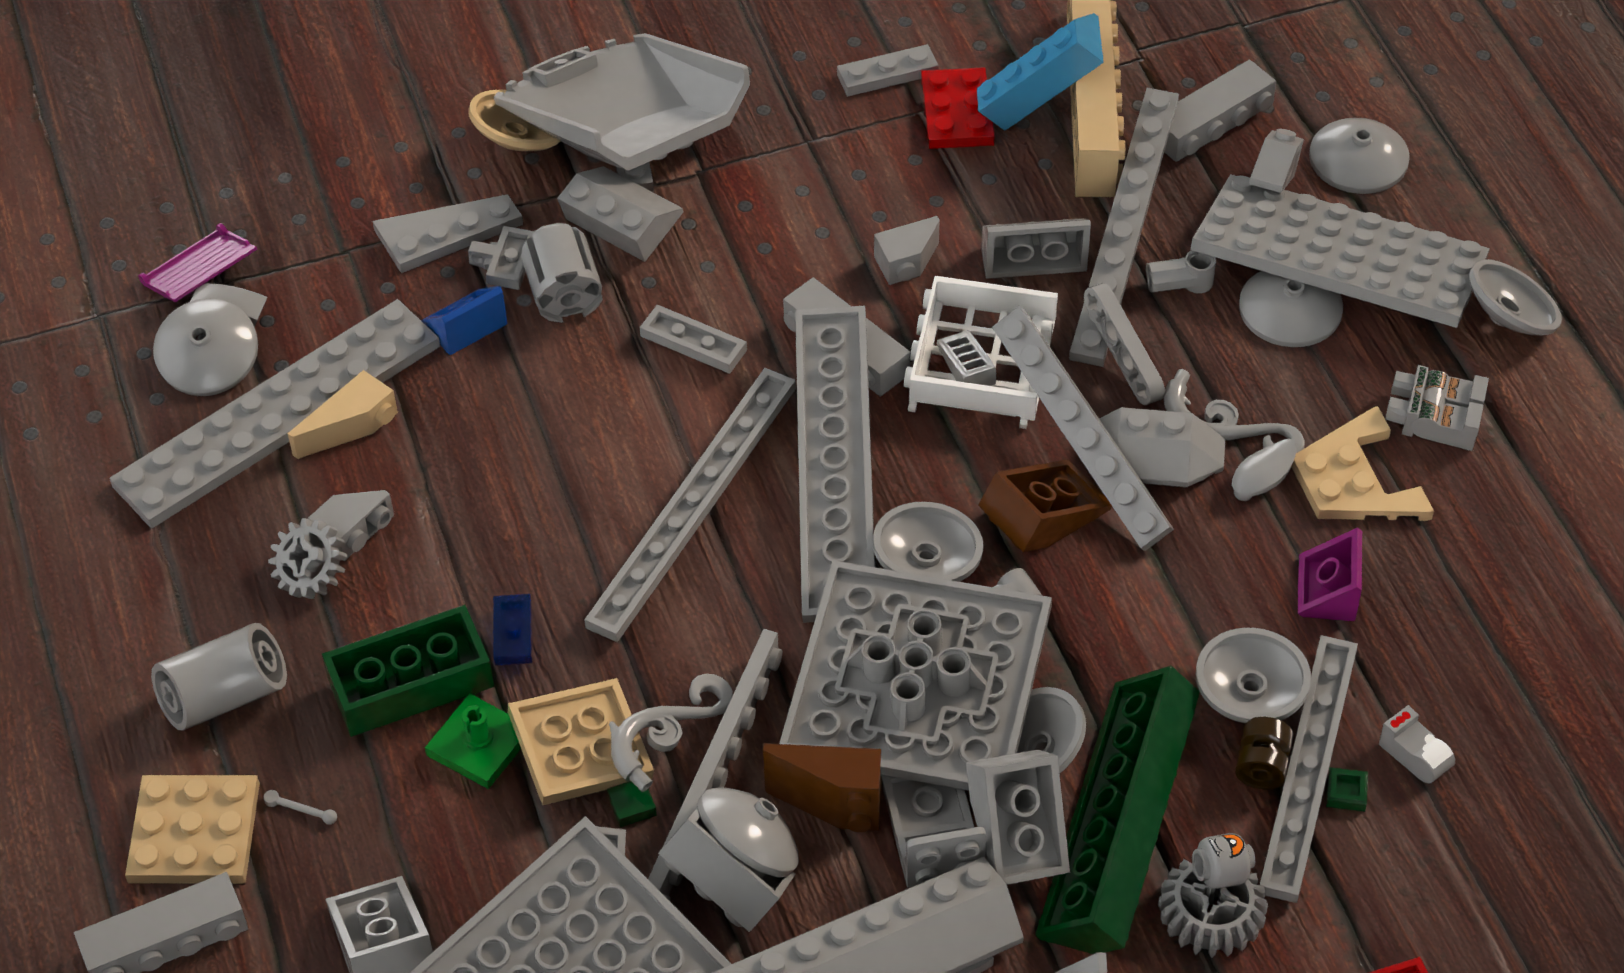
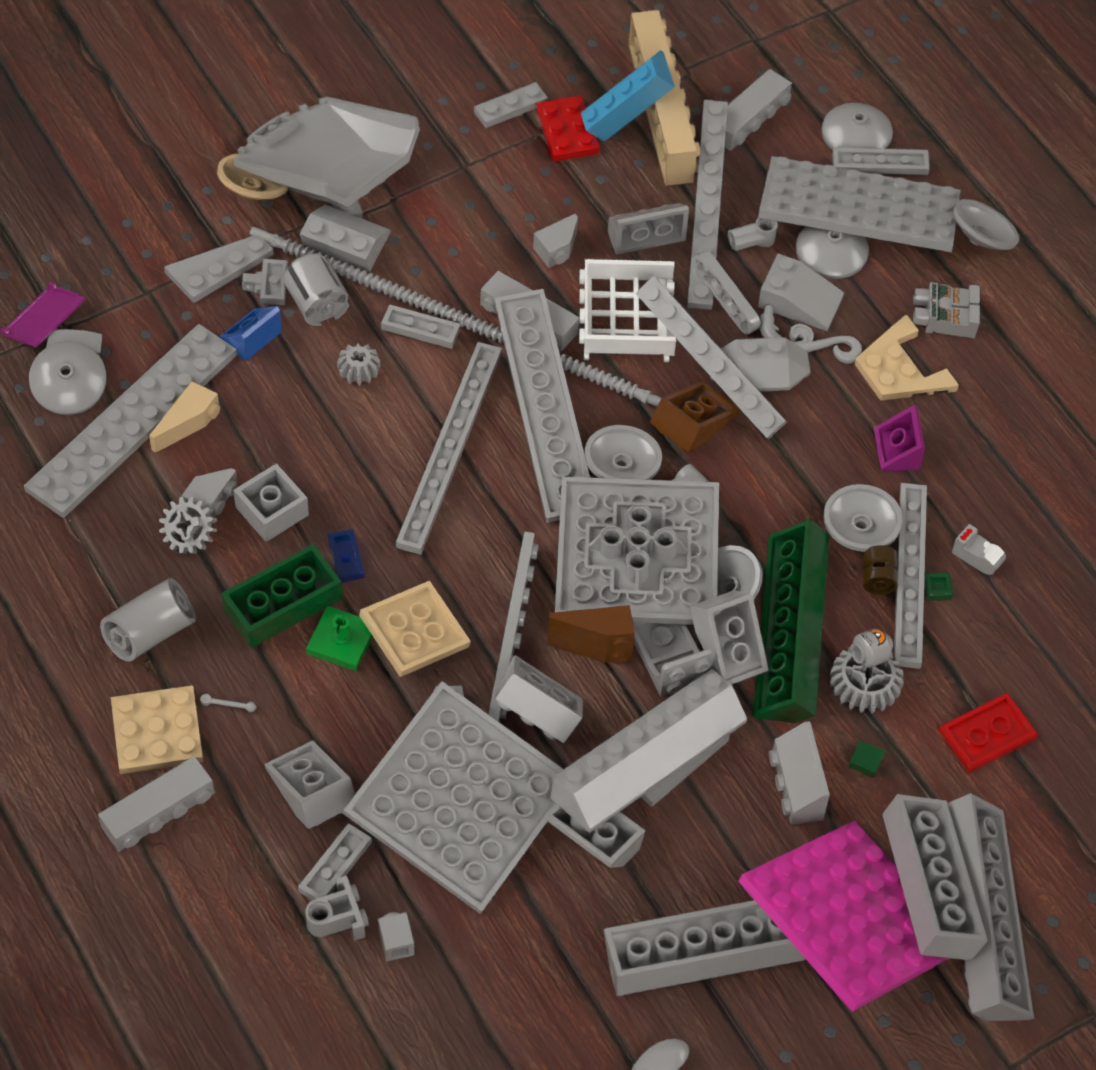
camera: 15 degrees left, 5 degrees up
(427, 543) = (271, 502): none -> light grey brick
(596, 376) = (358, 364): none -> light grey gear
(630, 803) = (459, 665): dark green tile -> none
(666, 719) = (470, 604): light grey plant -> none
(739, 328) = (574, 366): none -> light grey hose
(749, 830) = (550, 672): light grey dish -> none
(985, 372) = (635, 325): light grey slope -> none
(1230, 358) = (800, 293): none -> light grey slope
(1263, 469) = (839, 370): light grey arm -> none
(1277, 160) = (804, 143): light grey slope -> none
(1385, 197) = (882, 160): none -> light grey plate

